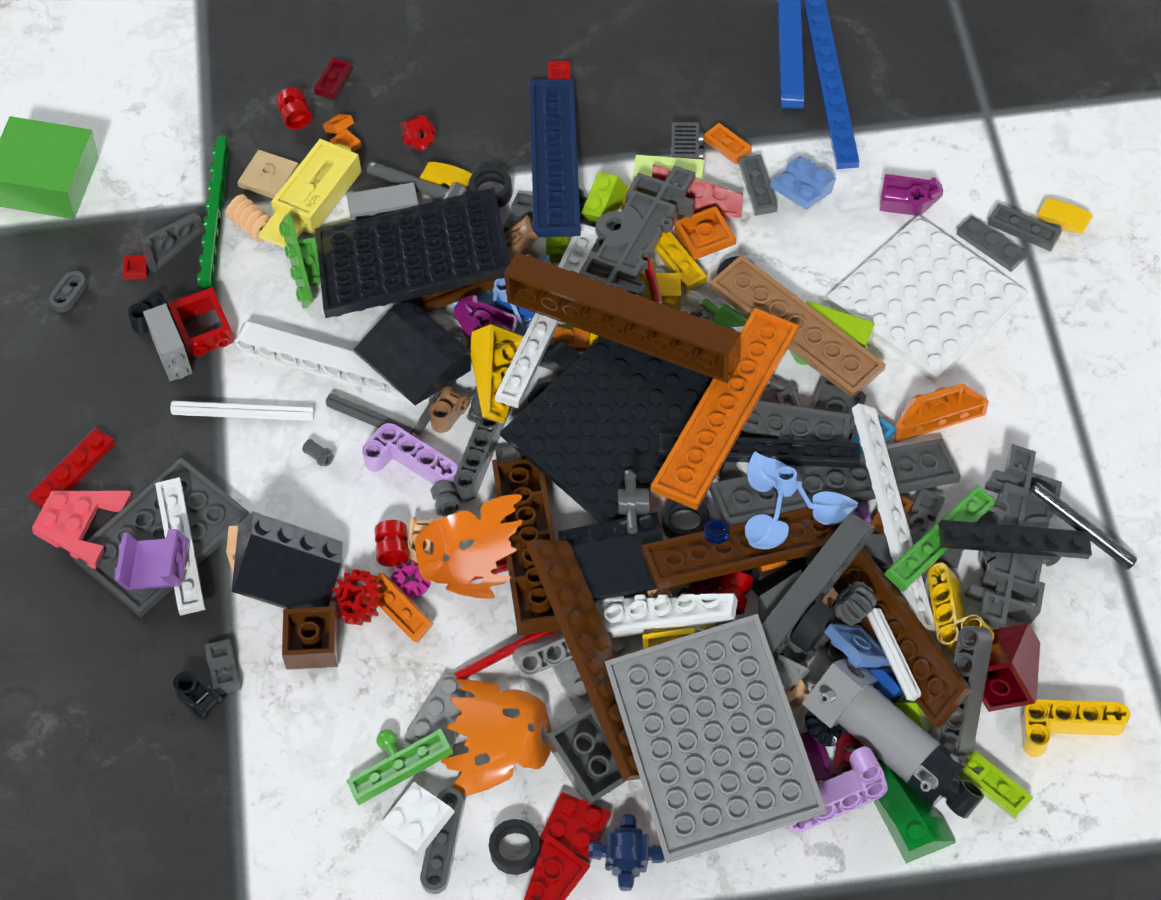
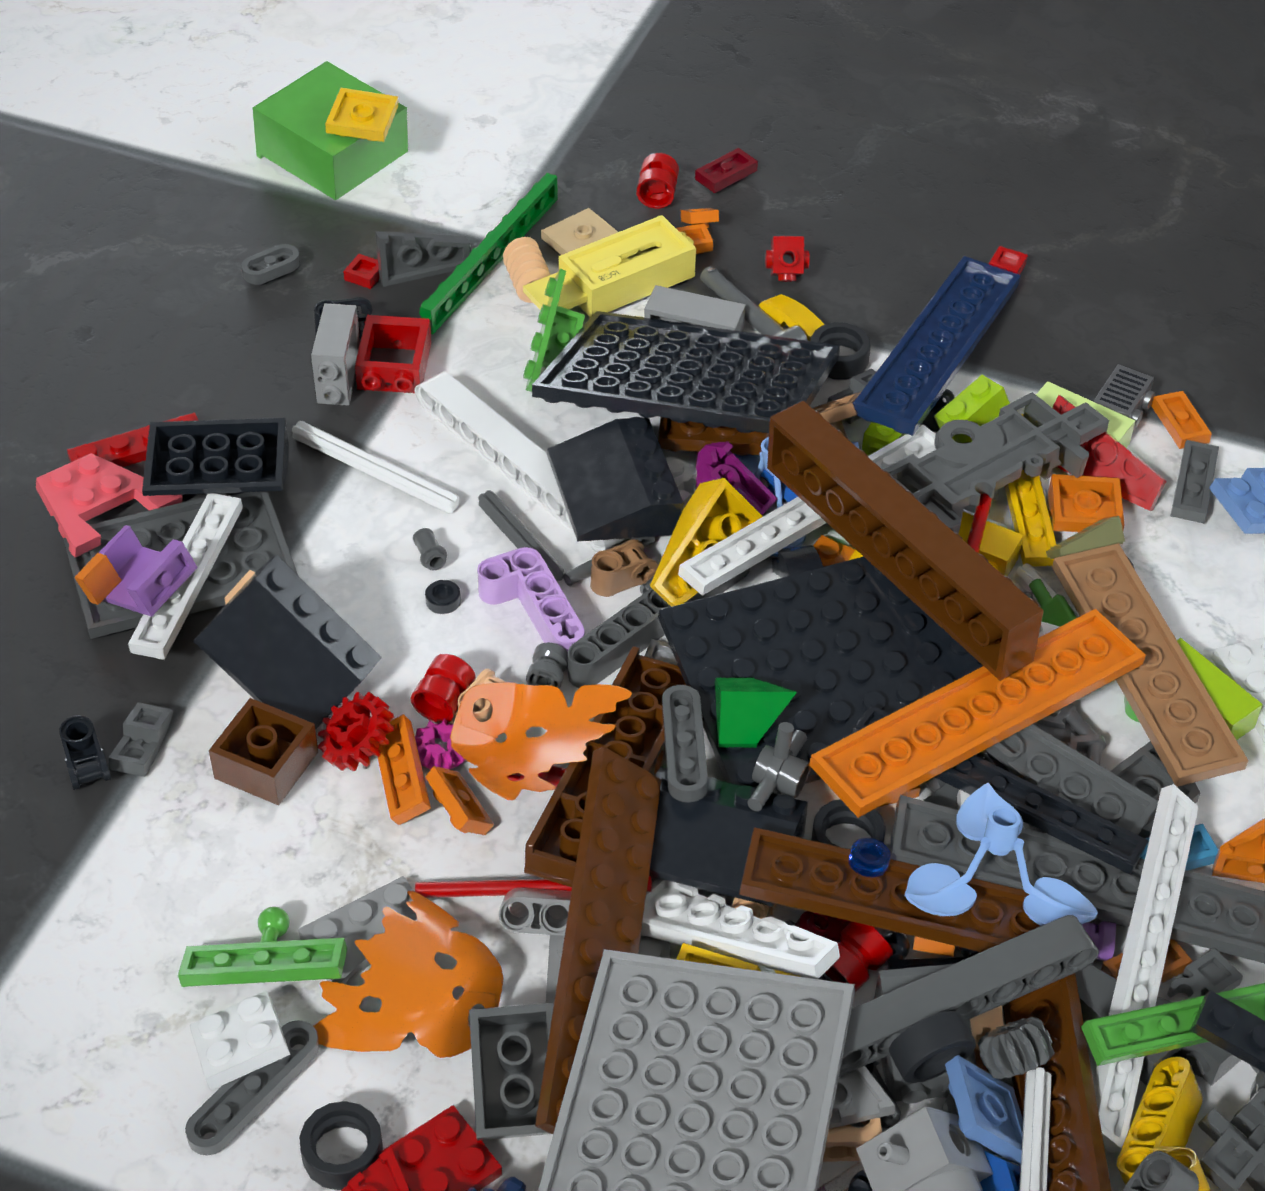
camera: 25 degrees right, 10 degrees down
(68, 151) = (362, 114): none -> yellow plate
(128, 577) = (98, 578): none -> orange tile
(141, 456) = (216, 456): none -> black slope
(346, 480) = (443, 596): none -> black tile
(446, 609) = (459, 801): none -> orange plate
(568, 511) = (684, 743): none -> dark grey plate
(591, 471) = (747, 709): none -> green slope
(723, 256) = (1100, 534): none -> olive slope

